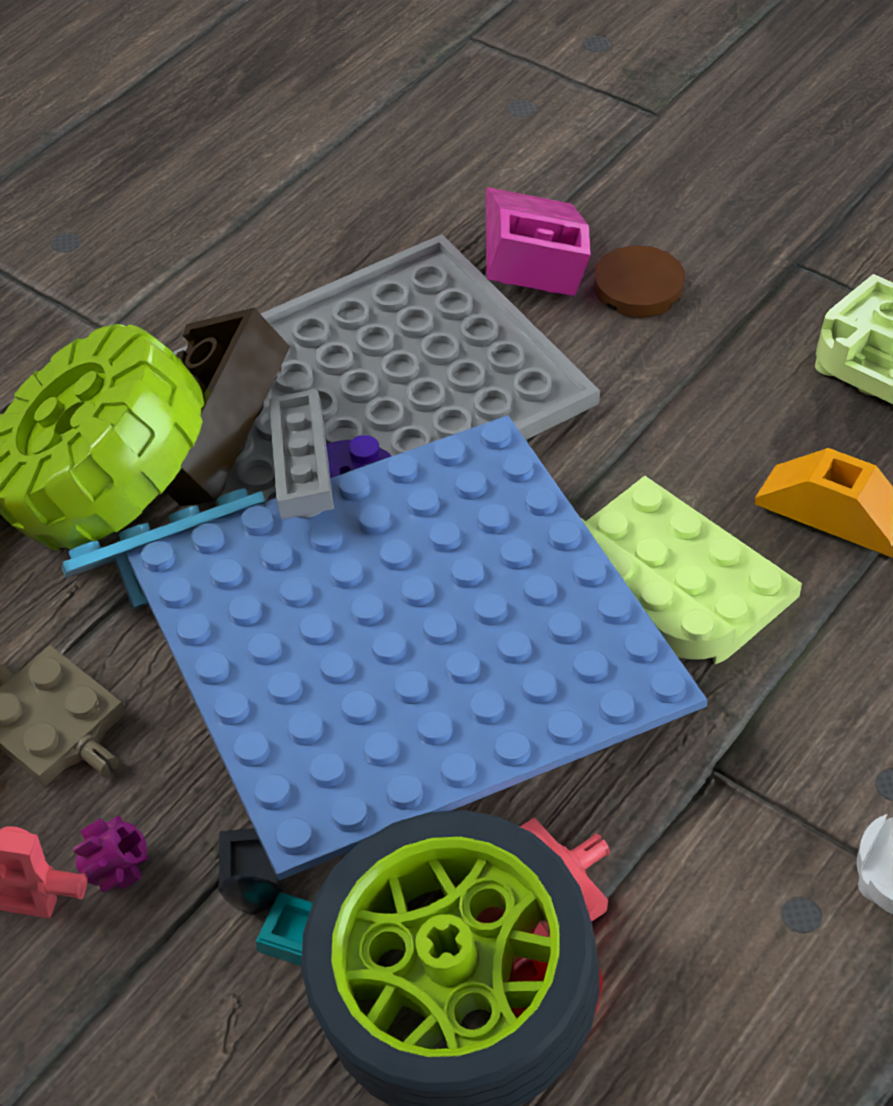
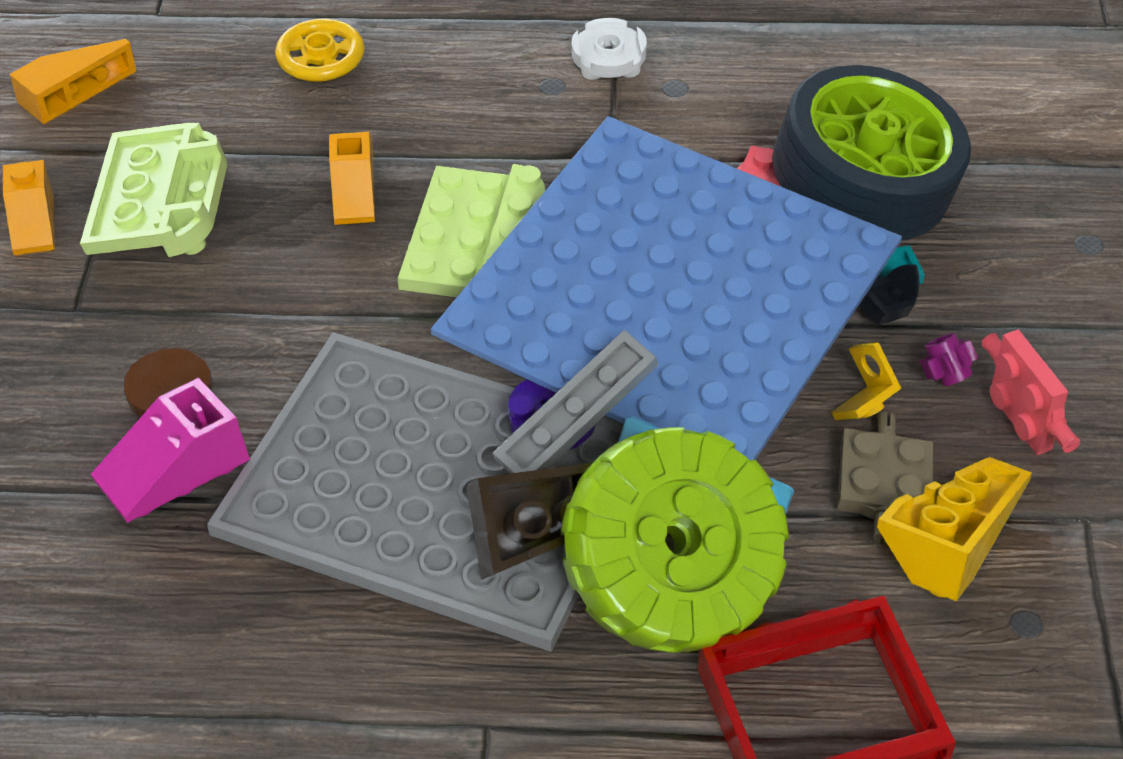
camera: 125 degrees left, 0 degrees up
(143, 755) = (878, 388): none -> yellow bracket

